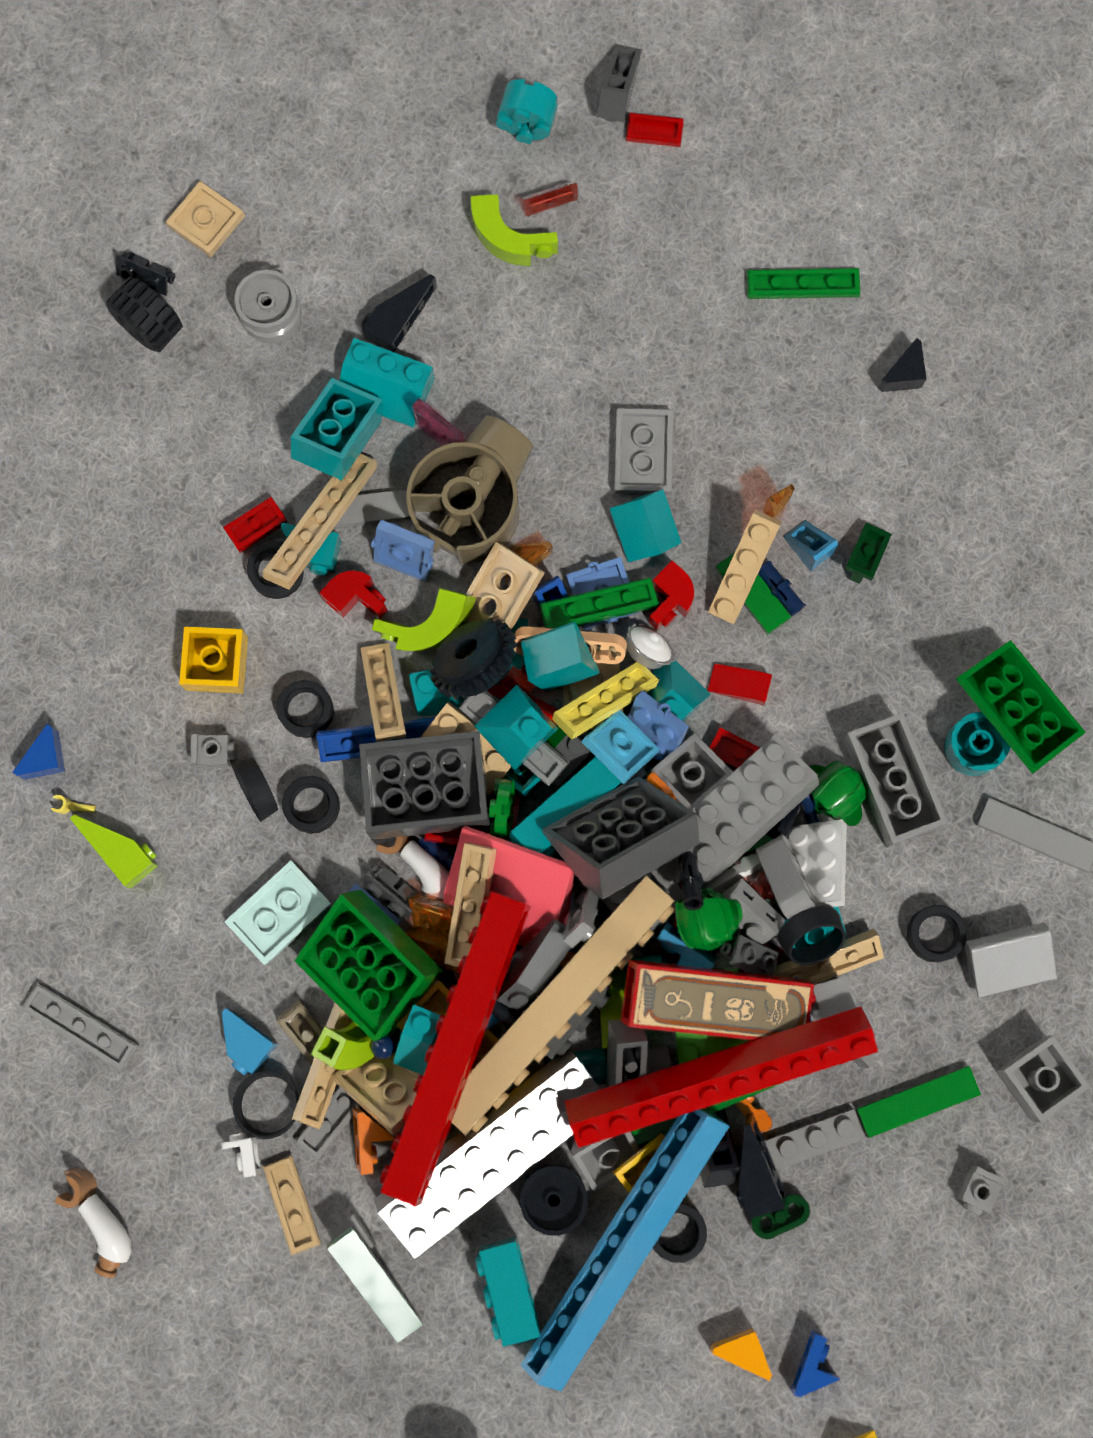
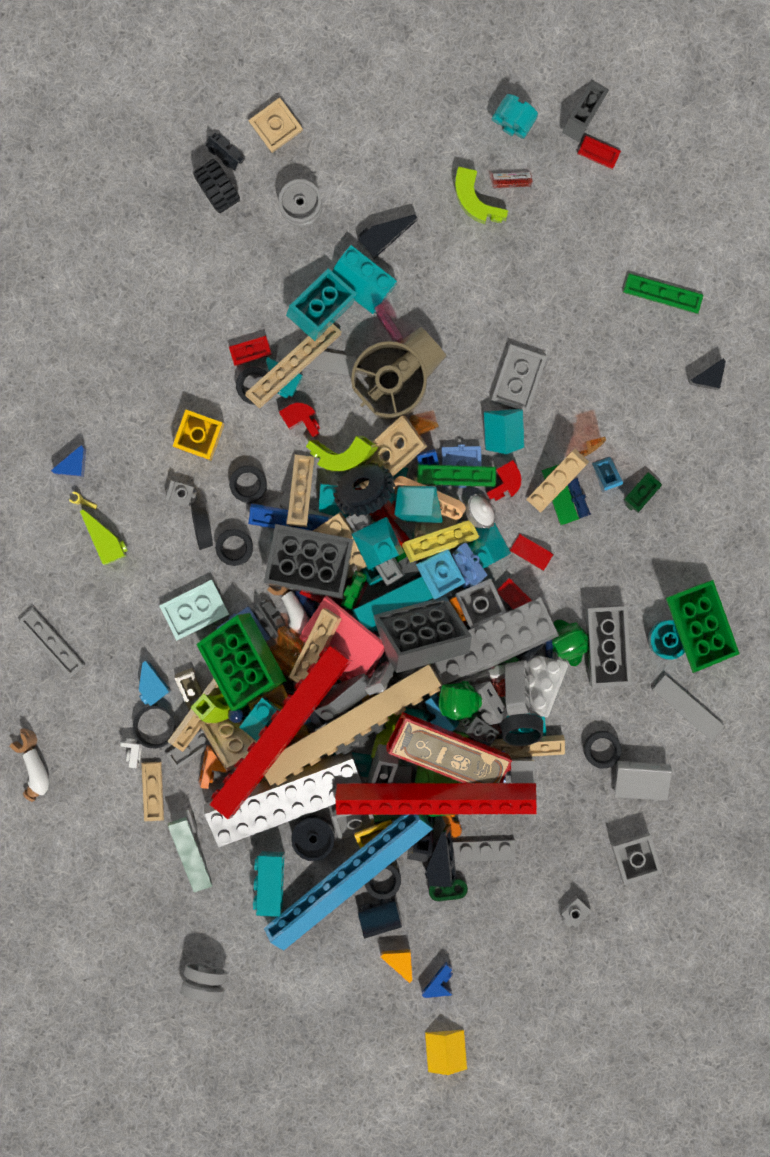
camera: 15 degrees right, 10 degrees up
(403, 550) = (341, 400): medium blue plate -> none
(691, 1292) = (379, 917): none -> black slope
(692, 893) = (457, 666): black pin -> none
(918, 1102) = (556, 848): green tile -> none

